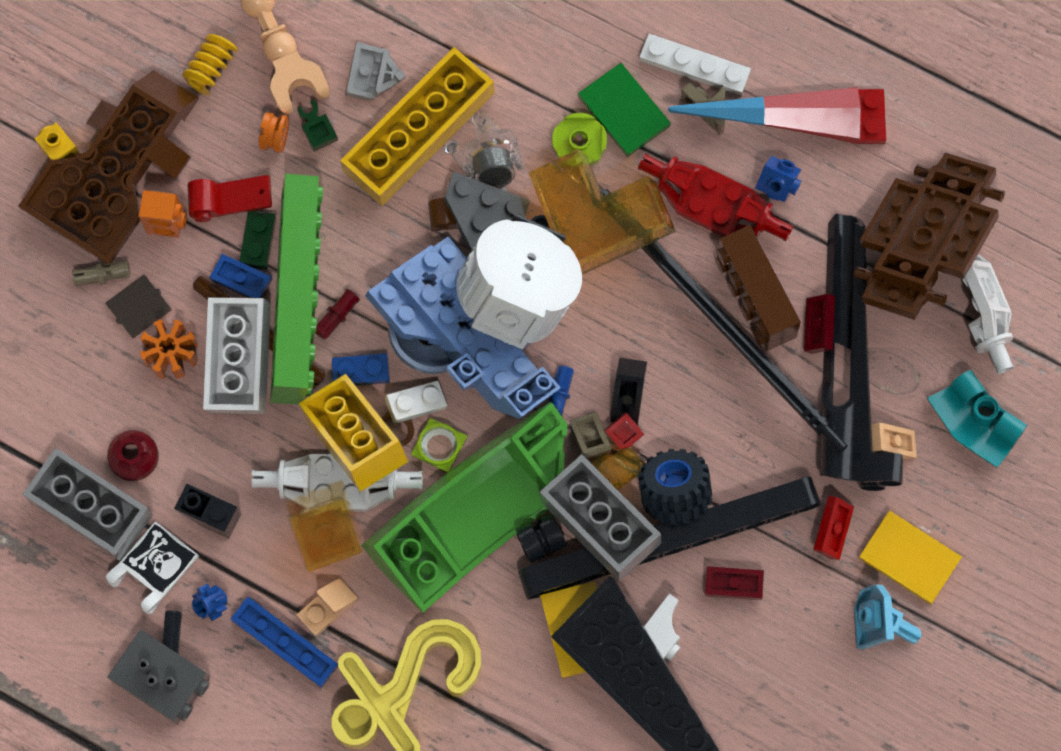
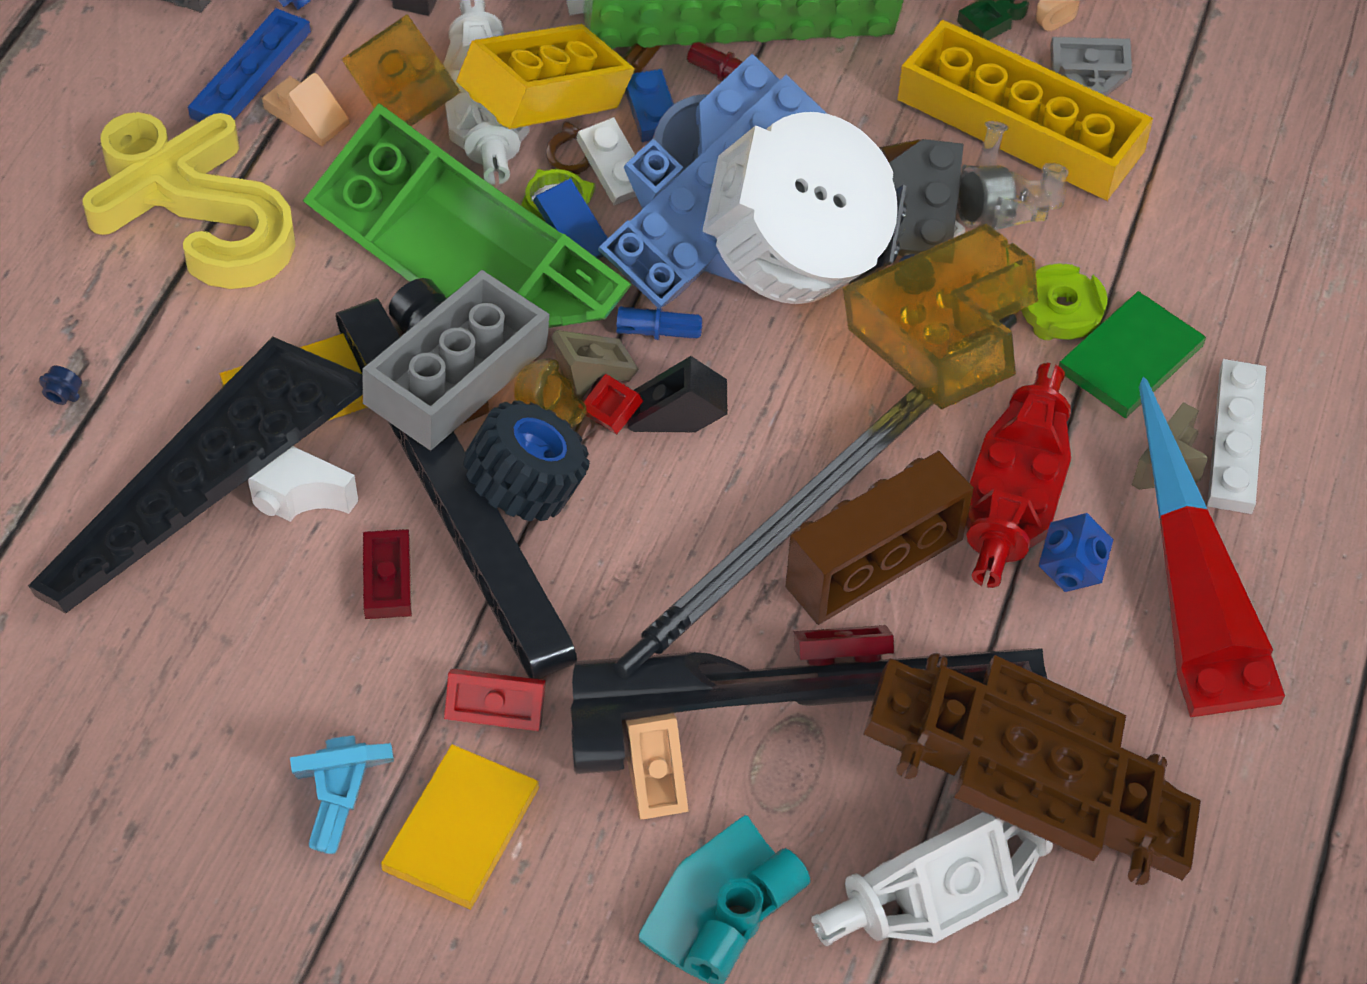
camera: 75 degrees right, 20 degrees down
(470, 435) = (569, 214): none -> blue tile

